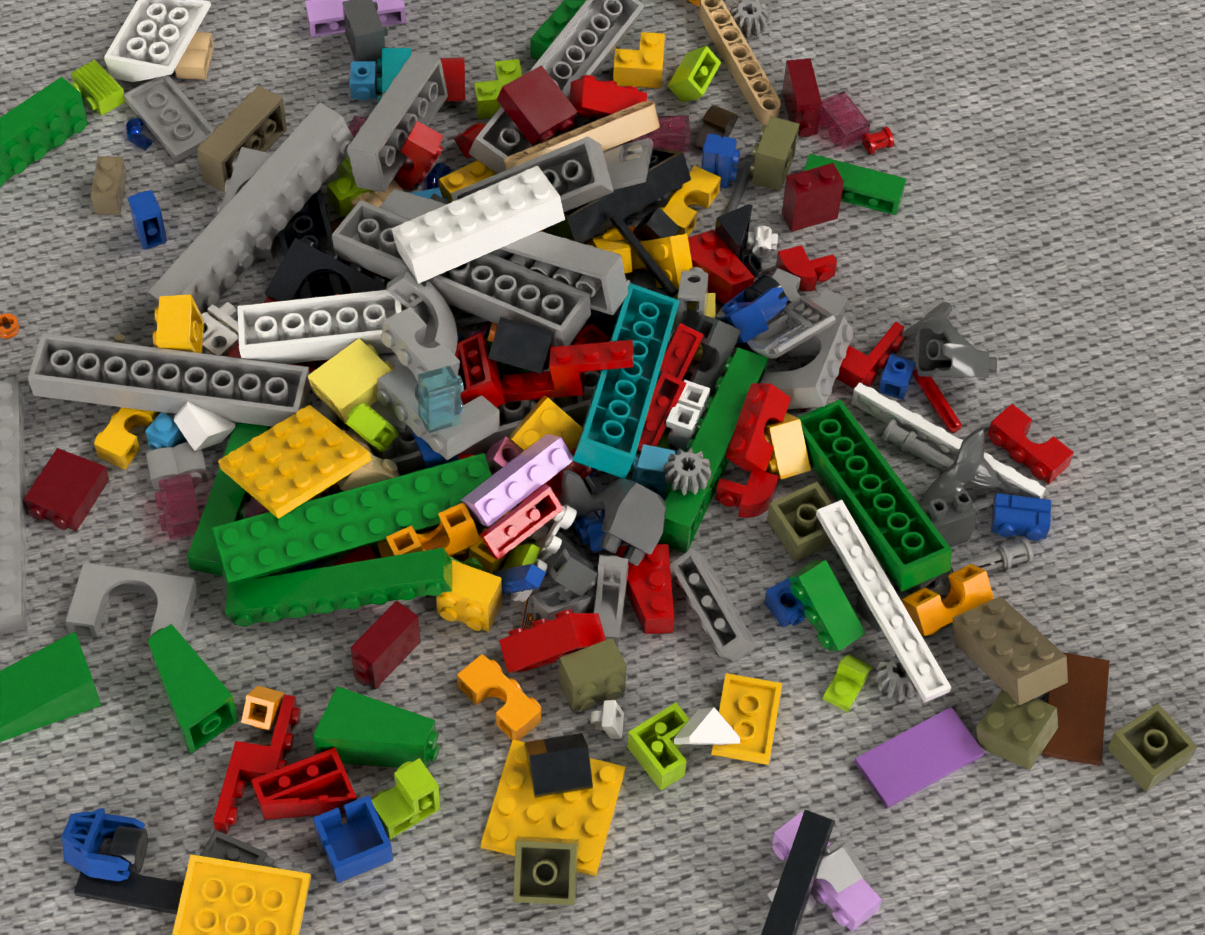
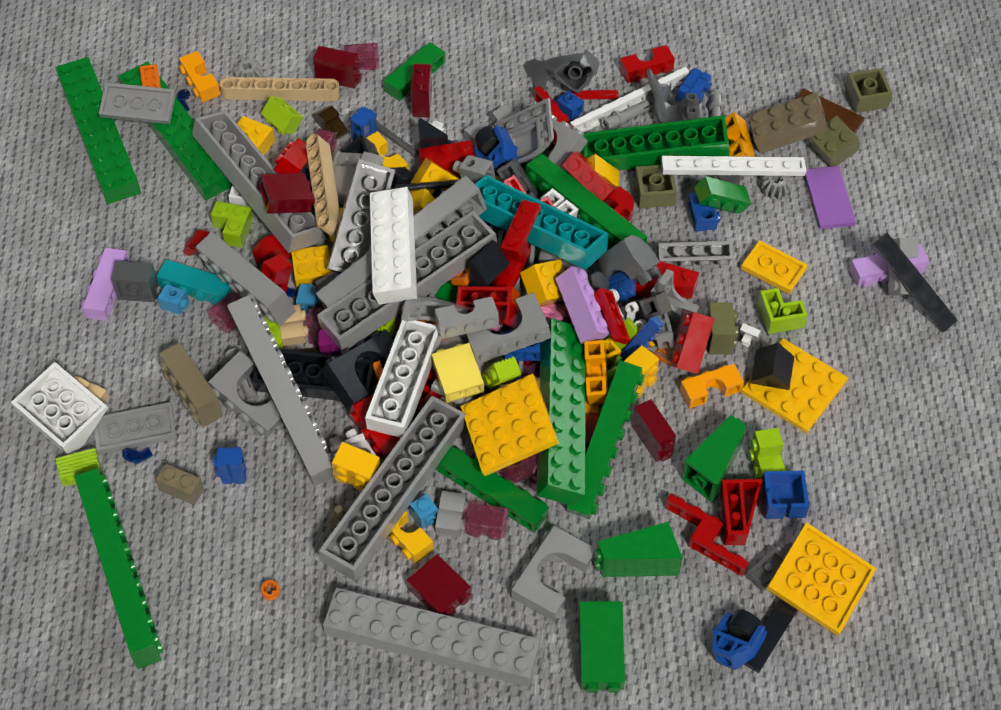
camera: 65 degrees left, 0 degrees up
(202, 426) = (437, 482): white slope -> none
(262, 707) = (671, 513): light orange brick -> none
(440, 398) = (524, 313): clear light blue brick -> none
(546, 870) = (845, 397): olive brick -> none
(687, 471) = (612, 219): light grey gear -> none
(707, 728) = (787, 281): white slope -> none
(774, 153) = (374, 95): olive brick -> none
(796, 262) = (463, 120): red brick -> none
(848, 682) = (766, 209): lime slope -> none
(878, 140) = (386, 46): red bush -> none

